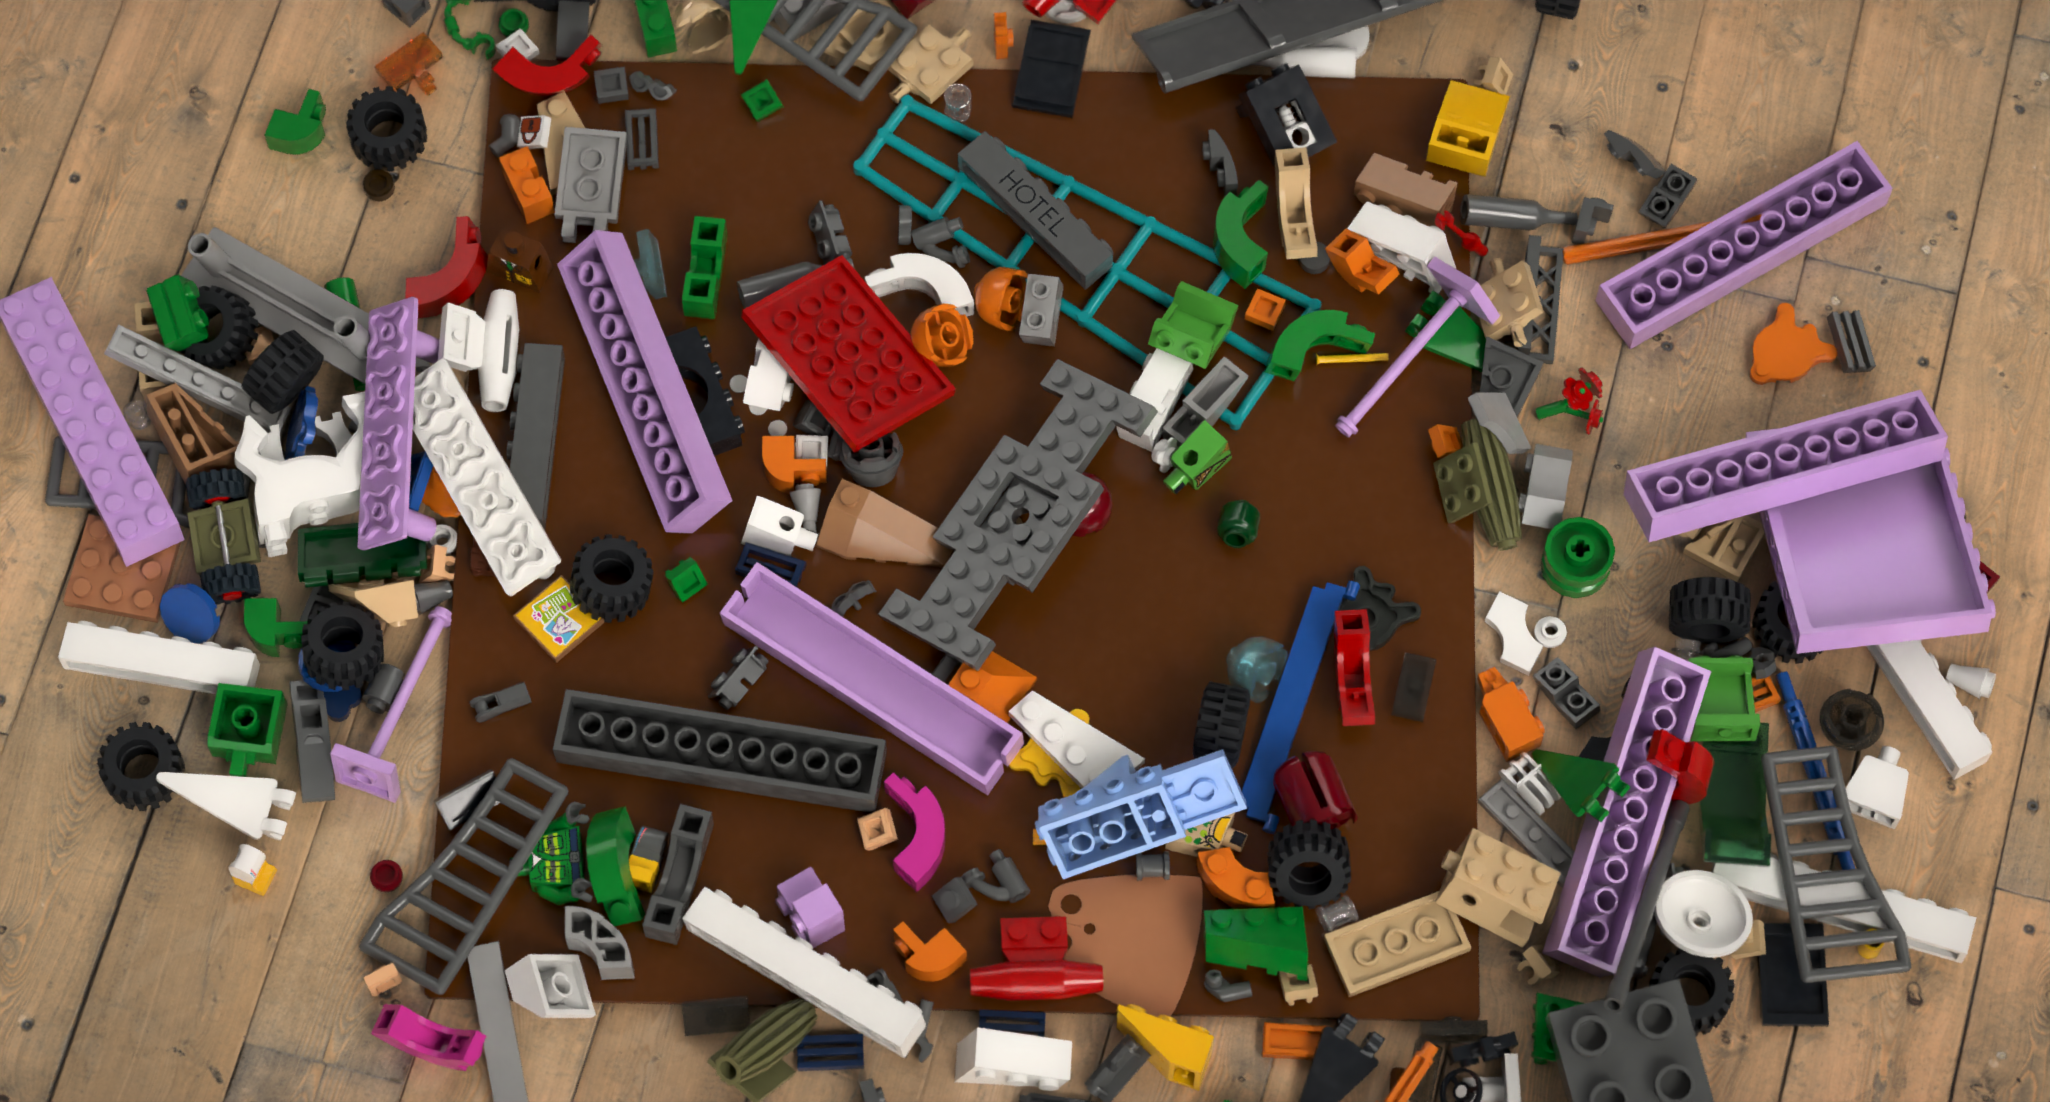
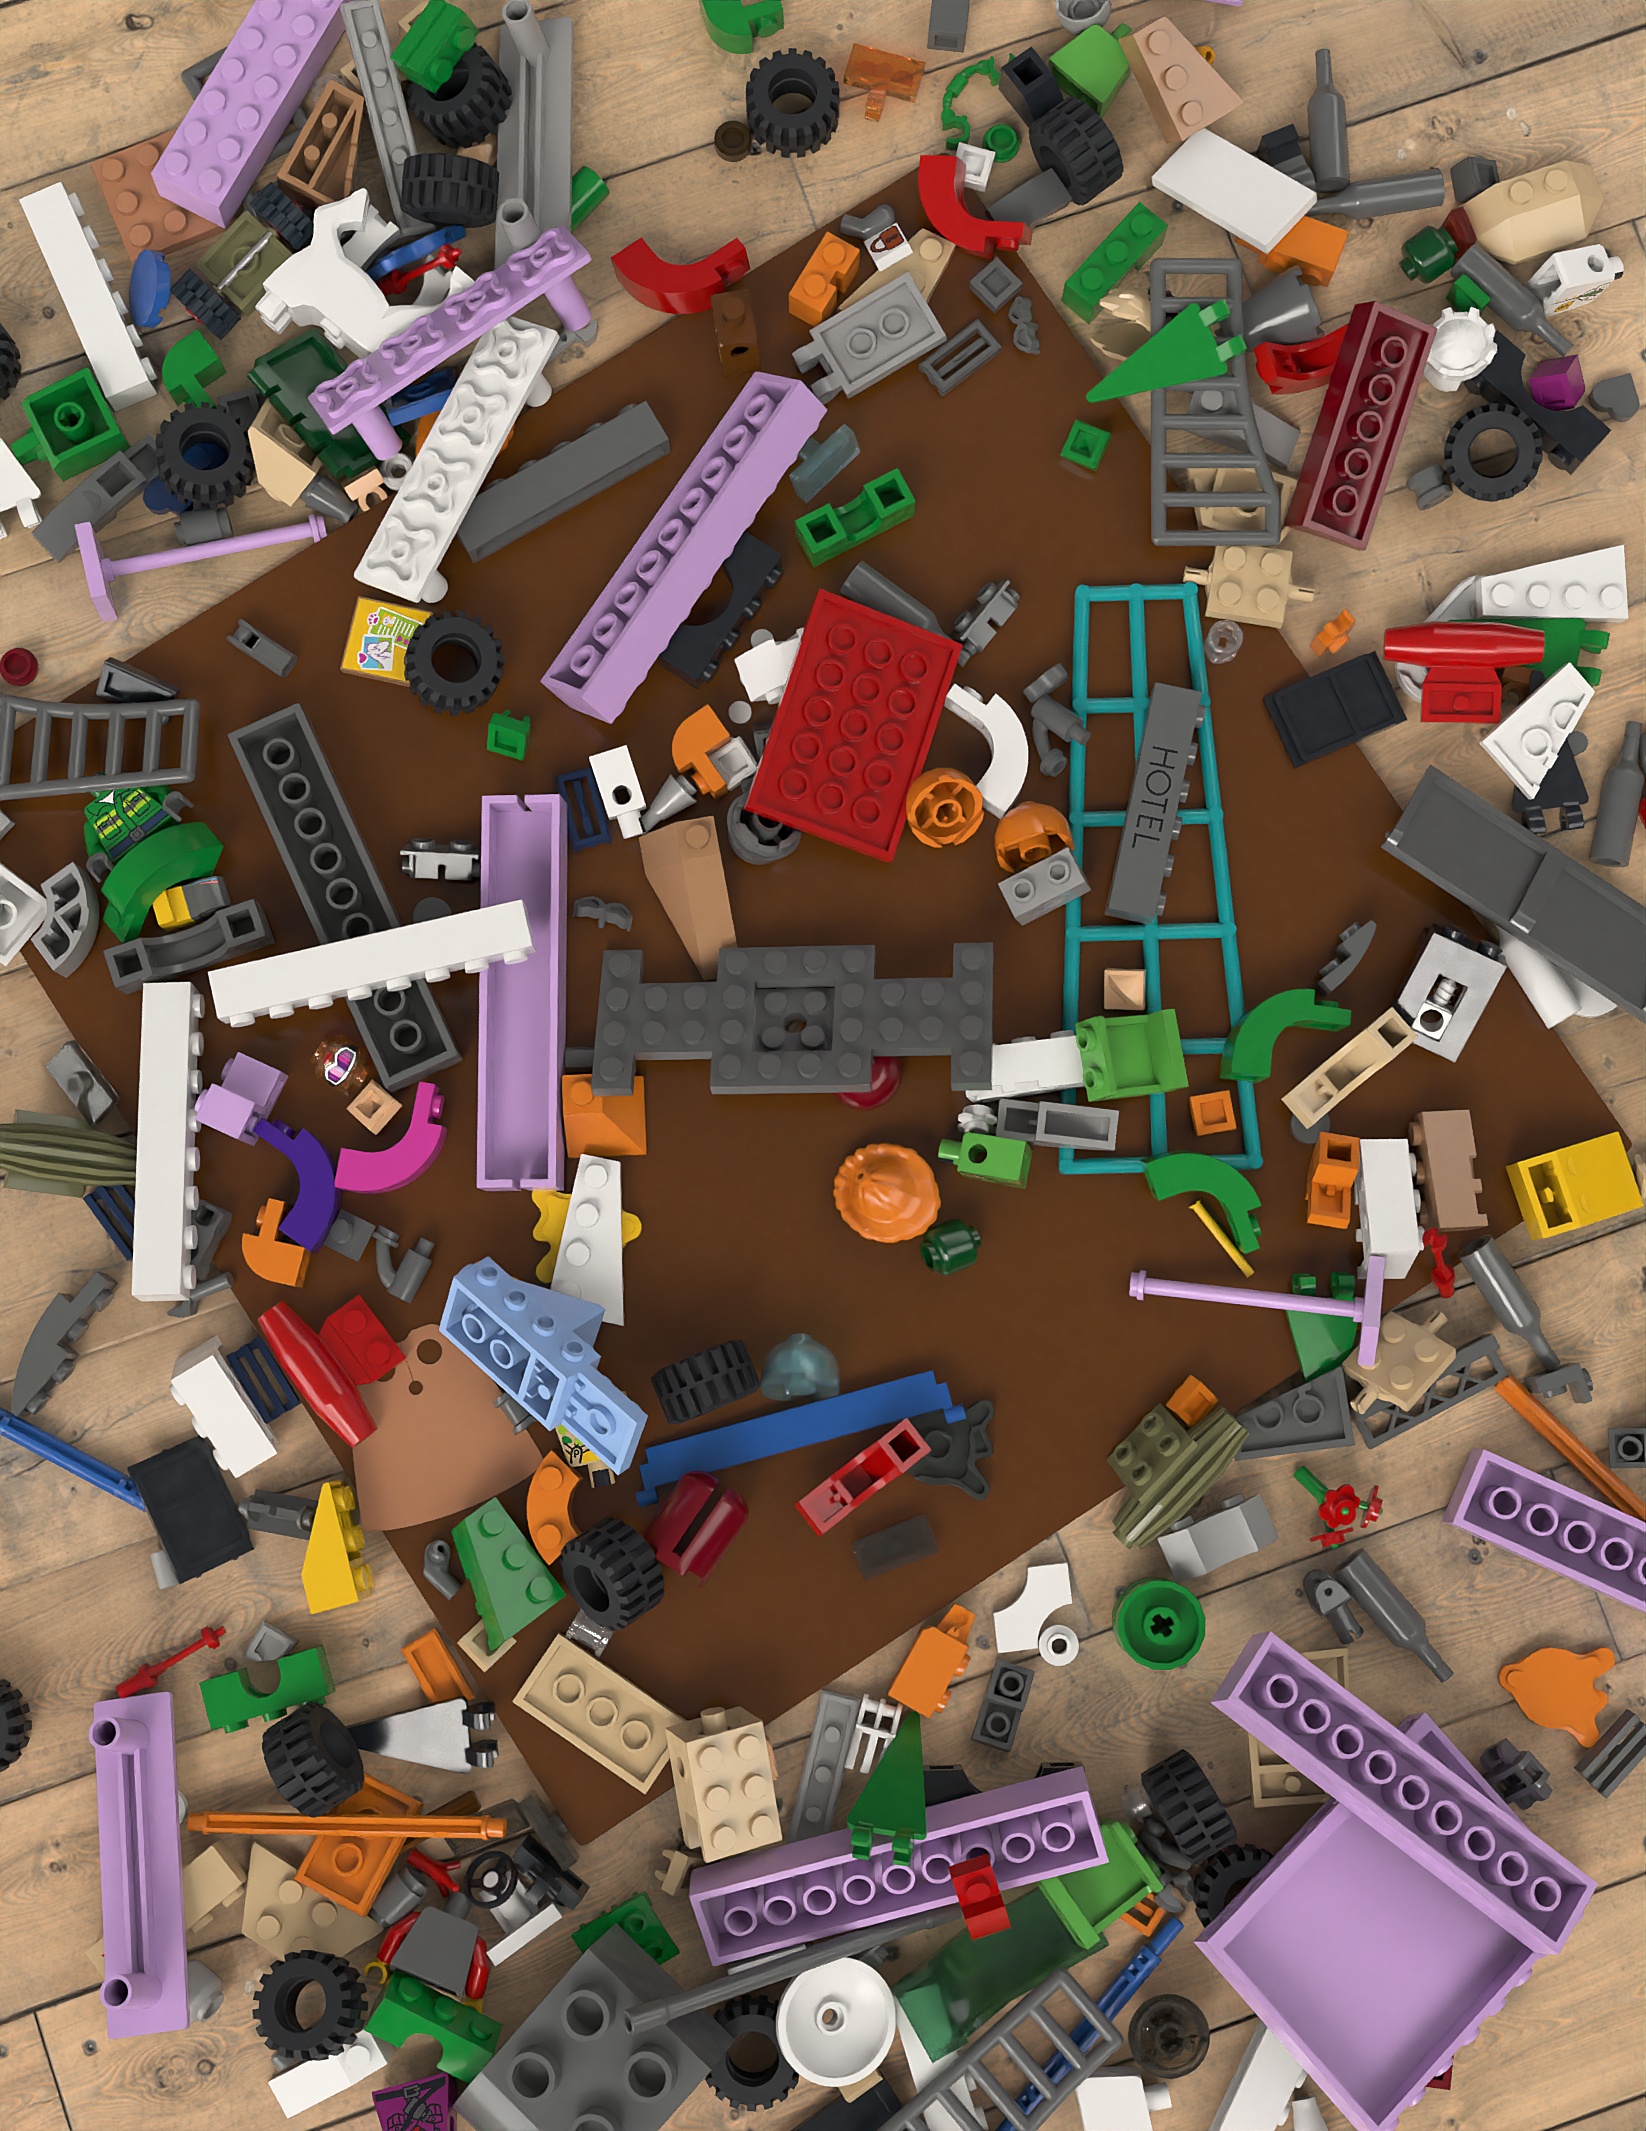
camera: 55 degrees right, 15 degrees up
(327, 402) = (397, 282): none -> red piece
(484, 345) = (619, 367): white plate -> none
(773, 708) = (431, 909): none -> dark grey tile
(785, 748) = (371, 963): none -> white brick
(831, 829) = (340, 1063): none -> clear orange head
(897, 894) = (318, 1197): none -> dark purple arch
(1144, 308) = (1124, 989): none -> light nougat tile
(1173, 537) = (887, 1193): none -> orange piece
(1498, 416) = (1252, 1443): light grey tile -> none
(1636, 446) = (1331, 1600): none -> dark grey piece
(1665, 414) = (1389, 1609): none -> dark grey piece
(1820, 402) = (1511, 1767): none -> dark grey piece

